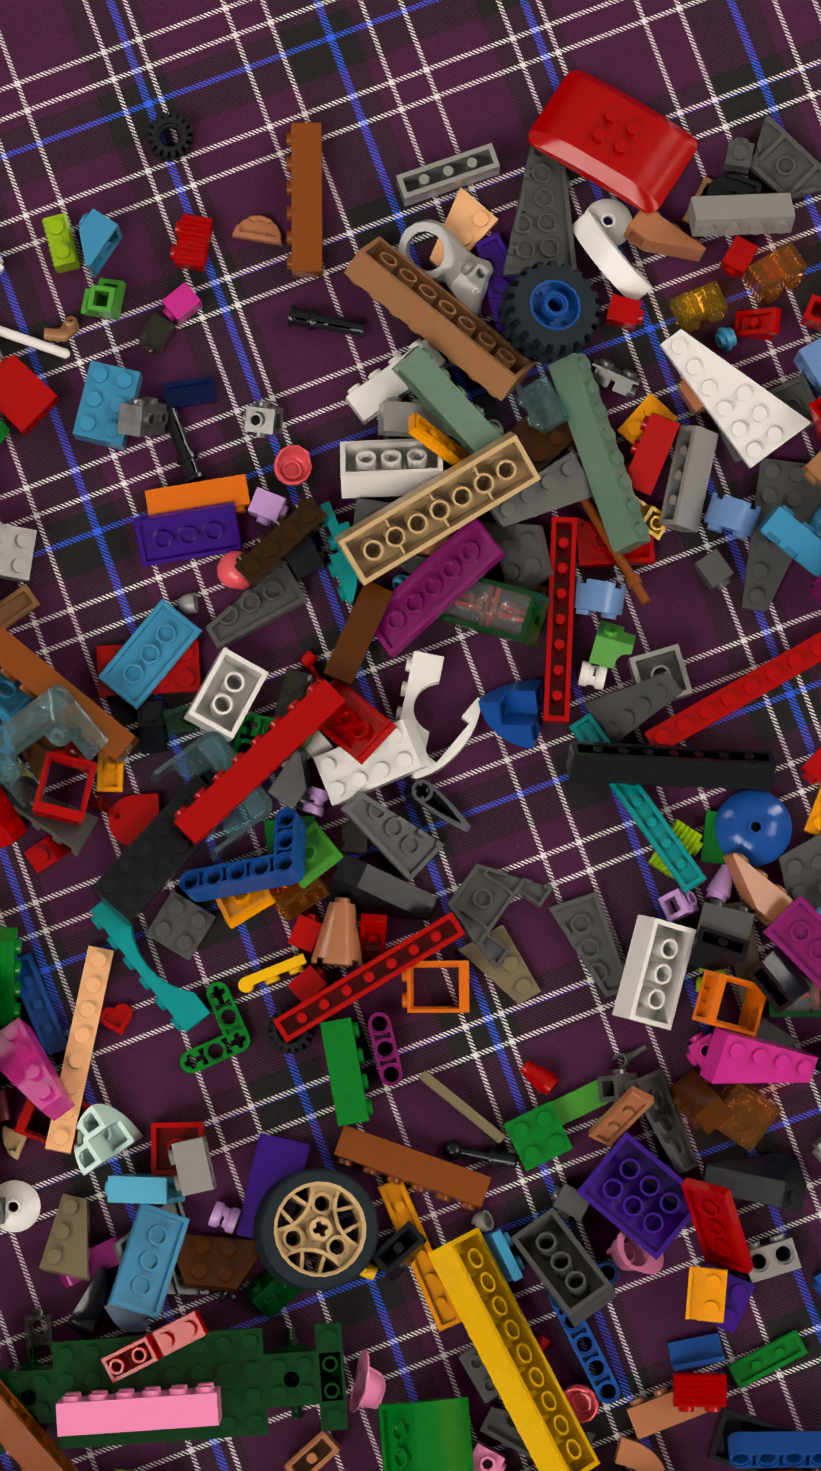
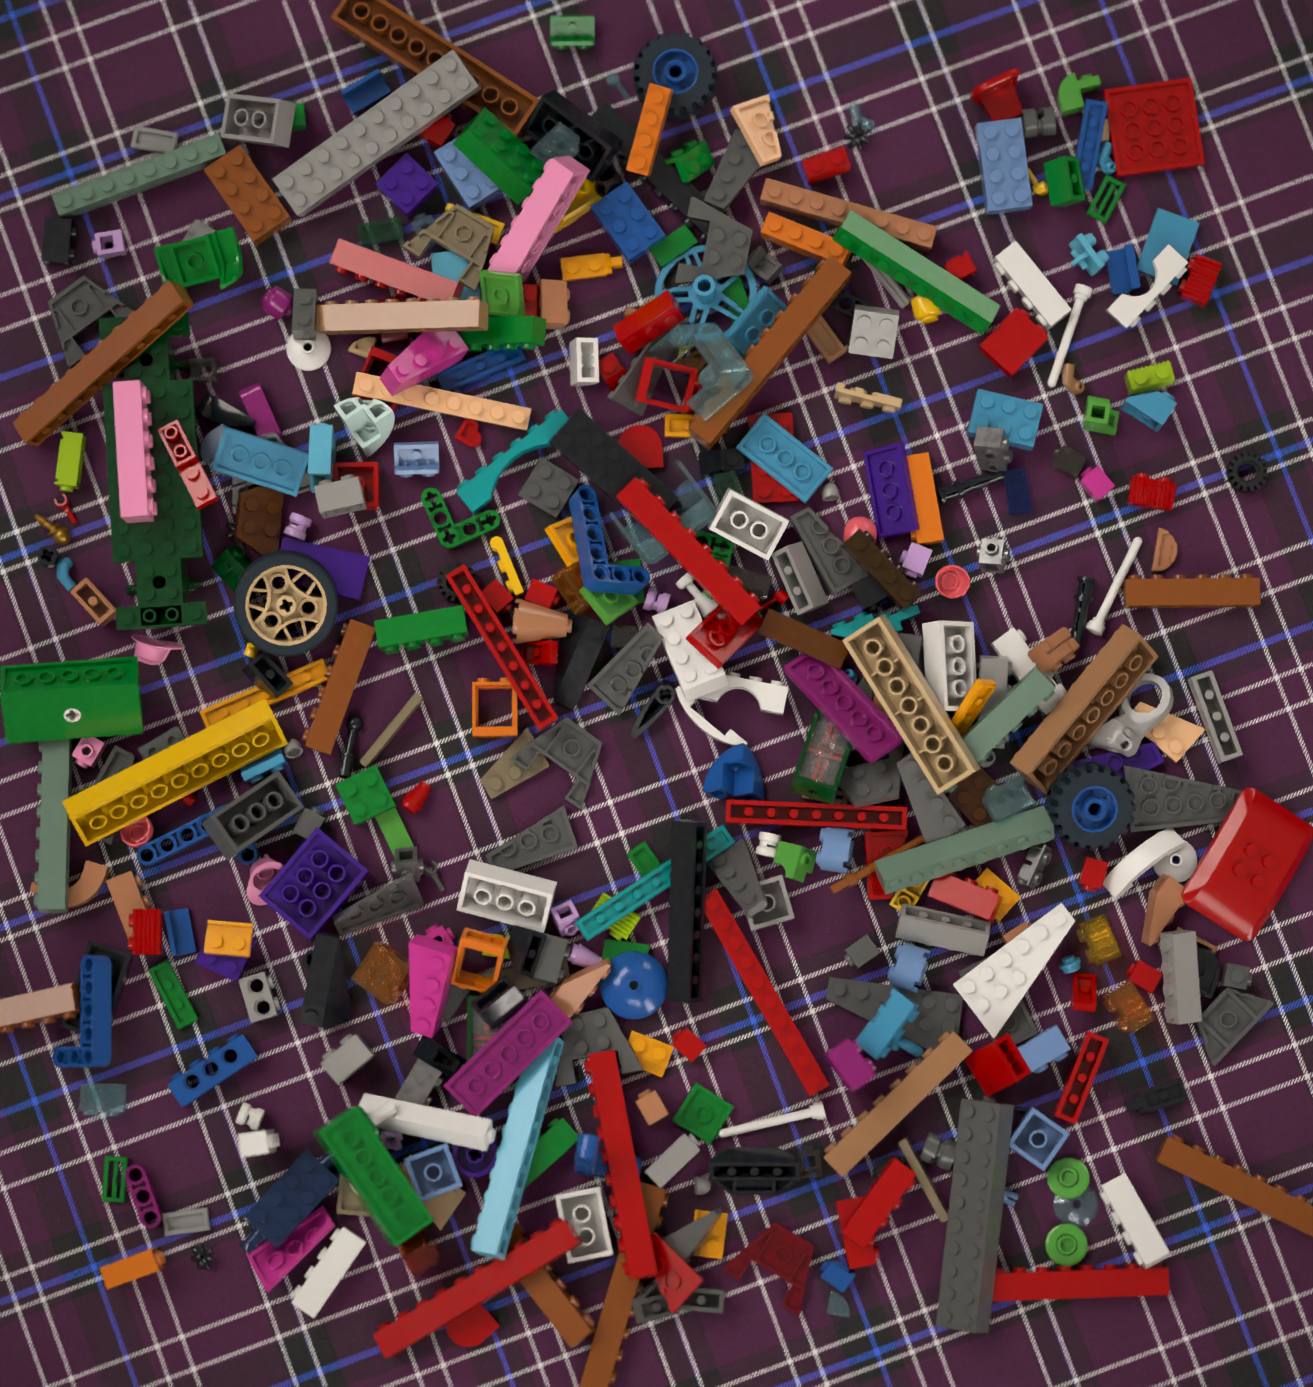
camera: 85 degrees right, 0 degrees up
(34, 884) = (584, 361): none -> white brick
(67, 1244) = (274, 392): dark tan wing -> none
(87, 536) = (858, 395): none -> tan wing
(101, 804) = (653, 419): clear red hand -> none
(146, 1078) = (416, 458): none -> medium blue bracket
(288, 637) = (799, 578): none -> light grey brick
(293, 781) = (672, 582): black slope -> none
(341, 305) = (1097, 624): none -> white piece
(372, 351) = (1053, 650): none -> nougat brick
(385, 1061) = (430, 663): magenta beam -> none
(609, 816) = (643, 859): none -> green tile
(621, 1116) = (382, 866): nougat tile -> none
(699, 1102) = (392, 933): reddish brown brick -> none
(717, 1225) = (287, 947): red plate -> none

